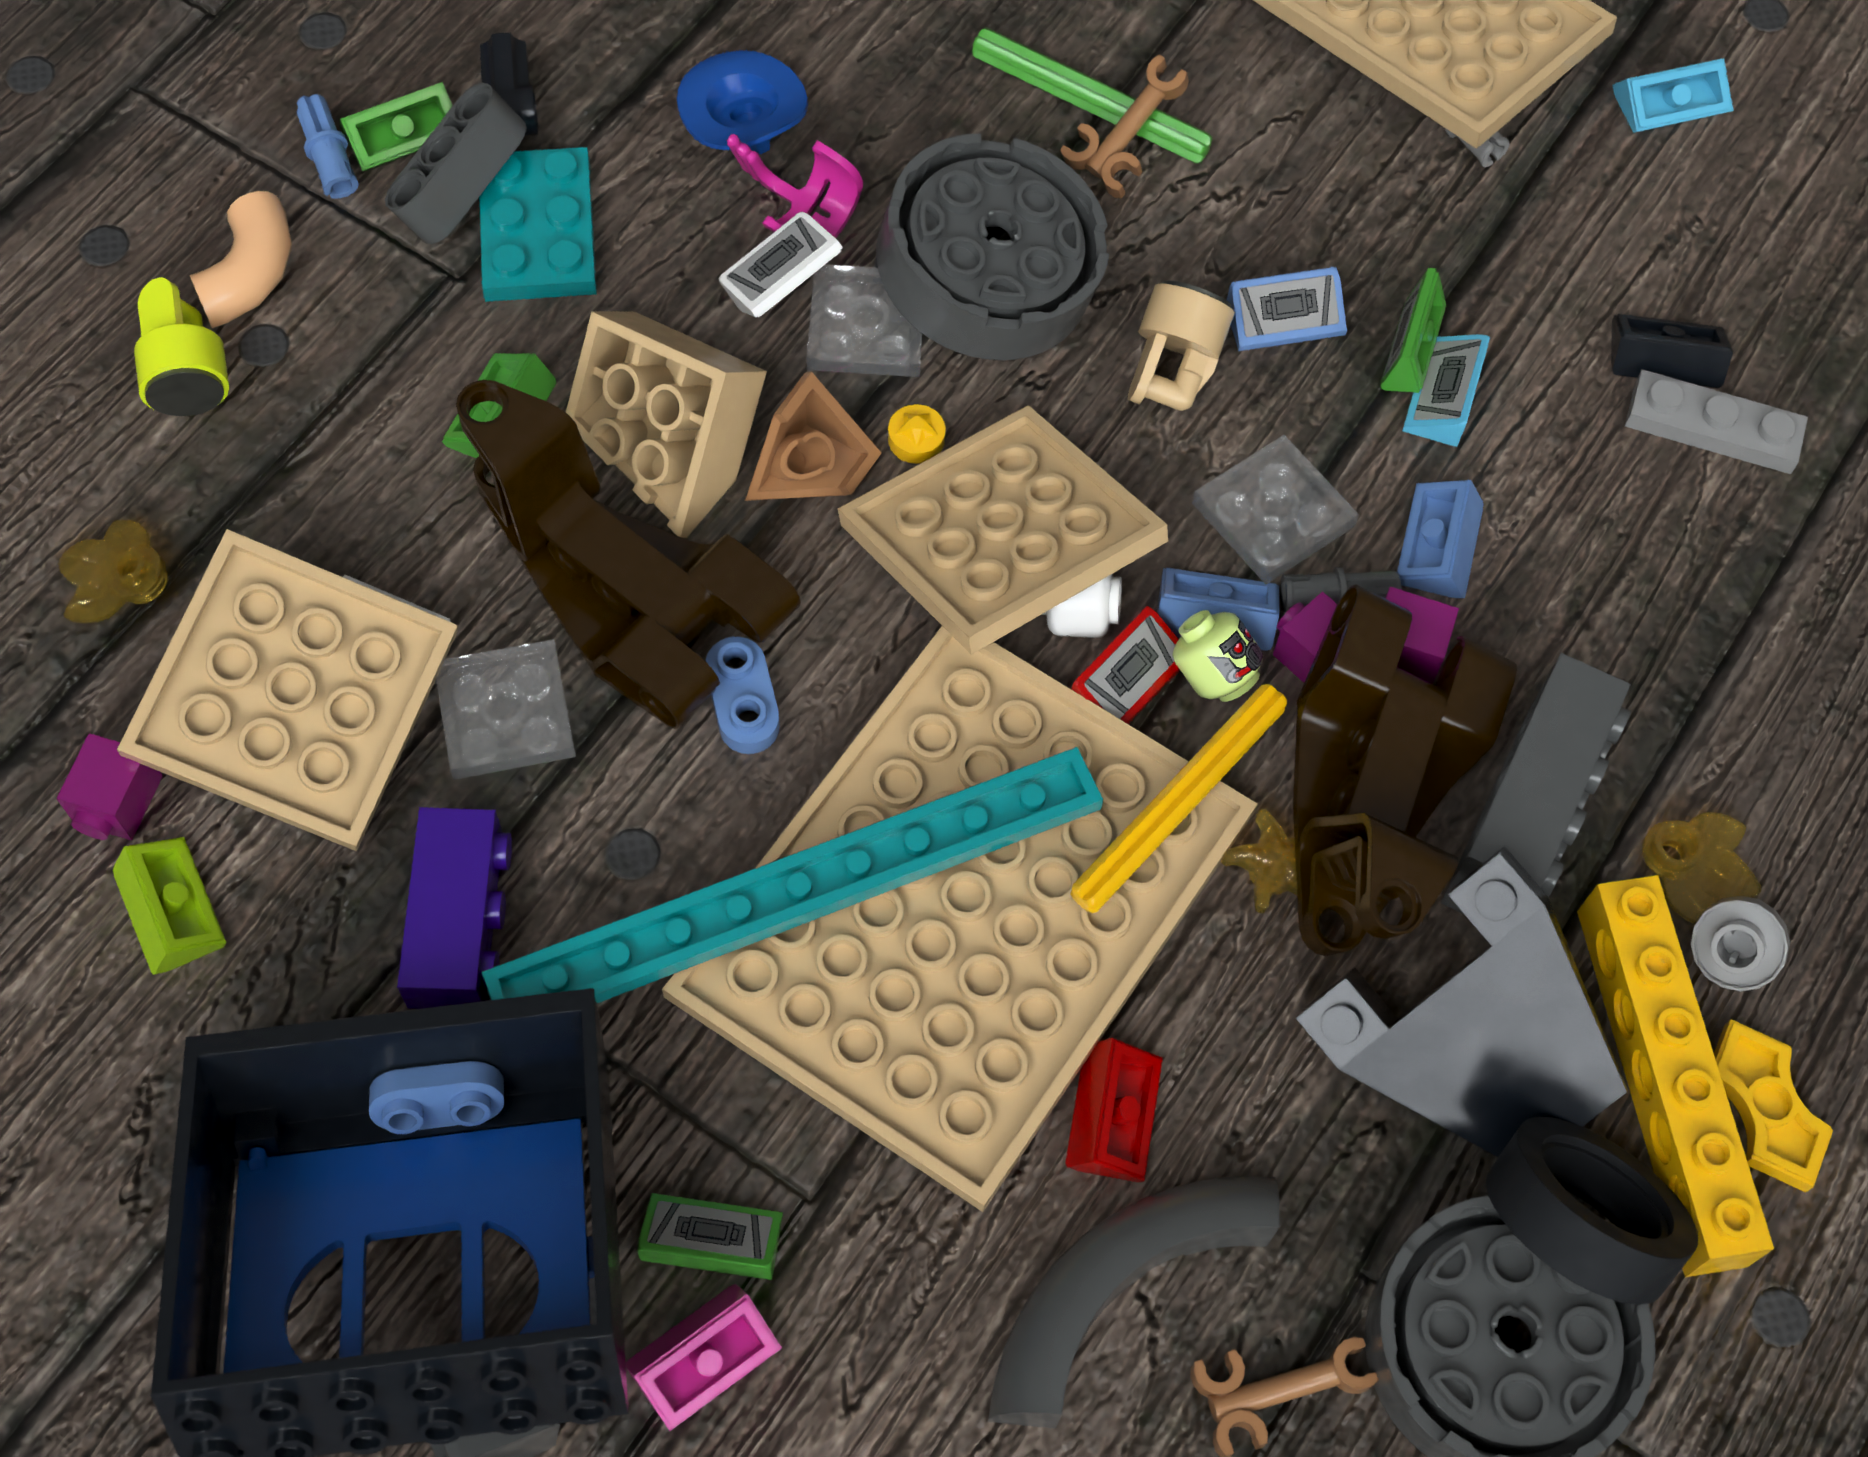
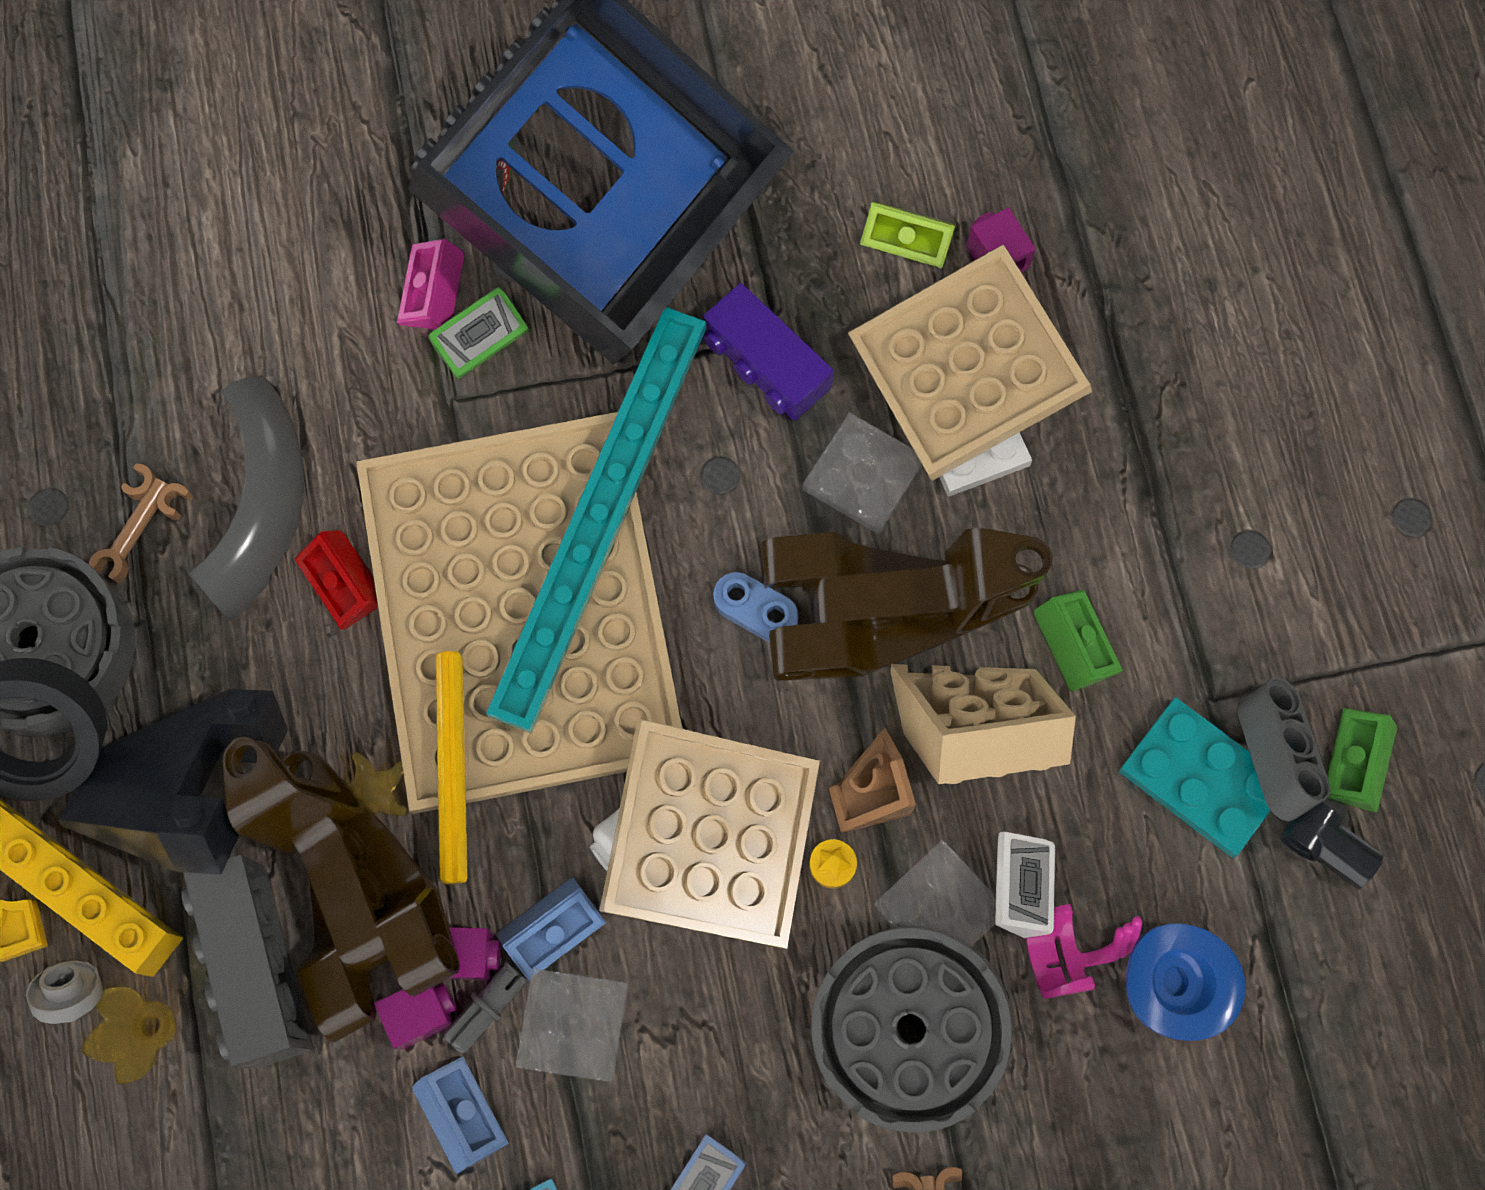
camera: 140 degrees right, 10 degrees up
(112, 572) = (1148, 348): clear yellow plate -> none
(176, 358) = (1263, 467): neon yellow piece -> none
(252, 265) = (1312, 579): light nougat cylinder -> none
(326, 147) = (1379, 695): medium blue axle -> none
(436, 1096) = (675, 242): medium blue plate -> none
(1131, 667) = (558, 830): slope -> none
(1188, 323) = (743, 1095): tan piece -> none
(1218, 655) = (512, 880): yellowish green head -> none

